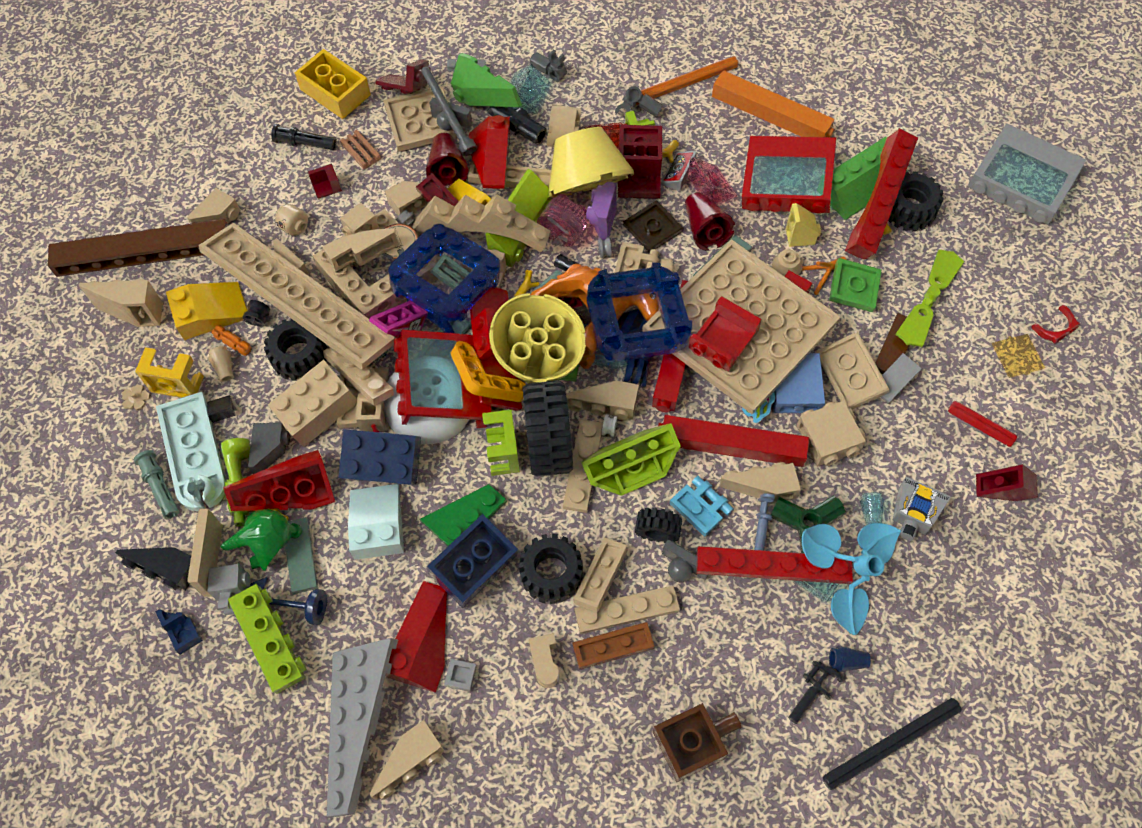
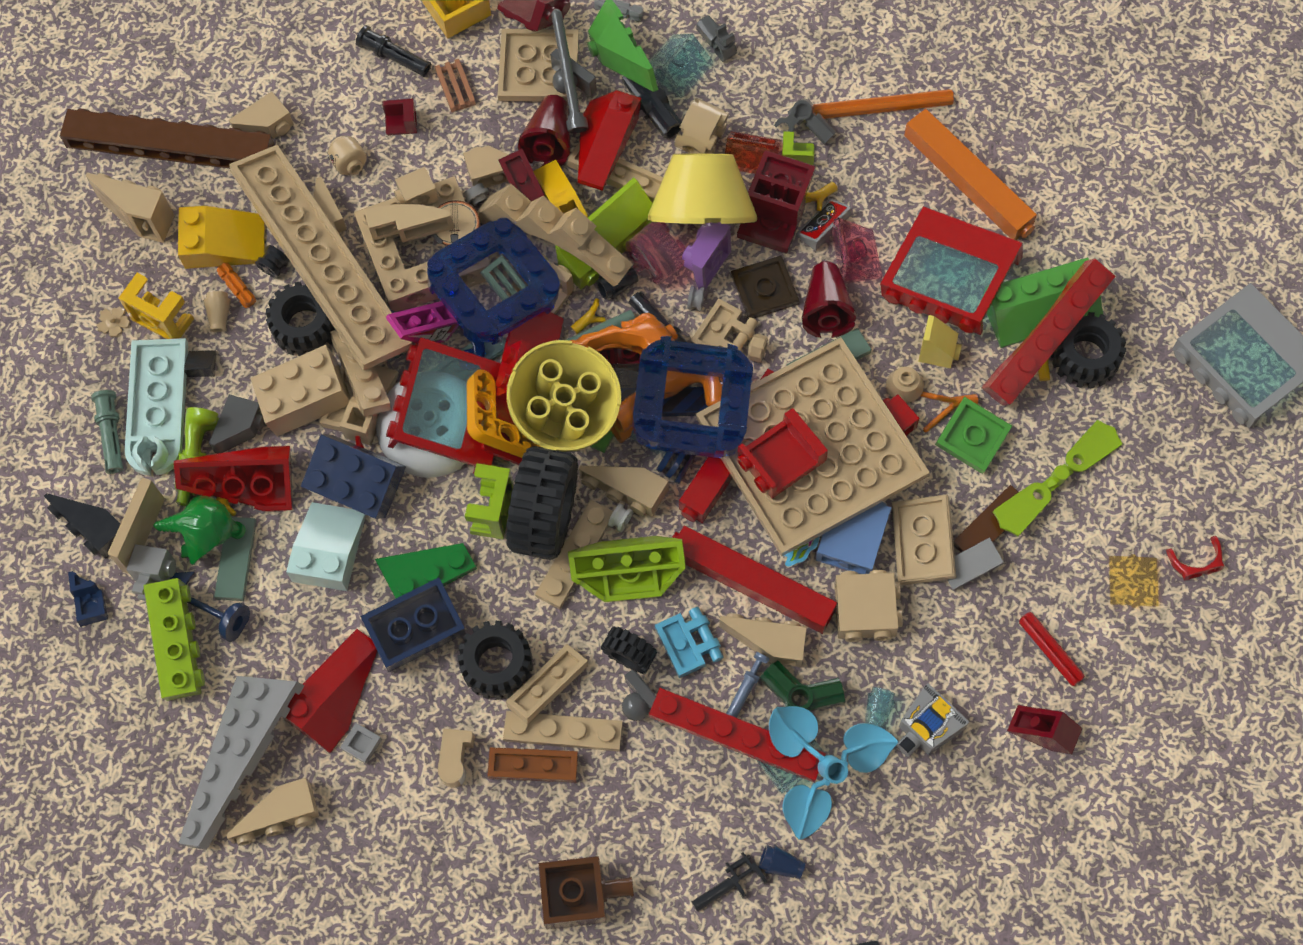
camera: 20 degrees right, 5 degrees up
(535, 258) = (608, 291): none -> black cone

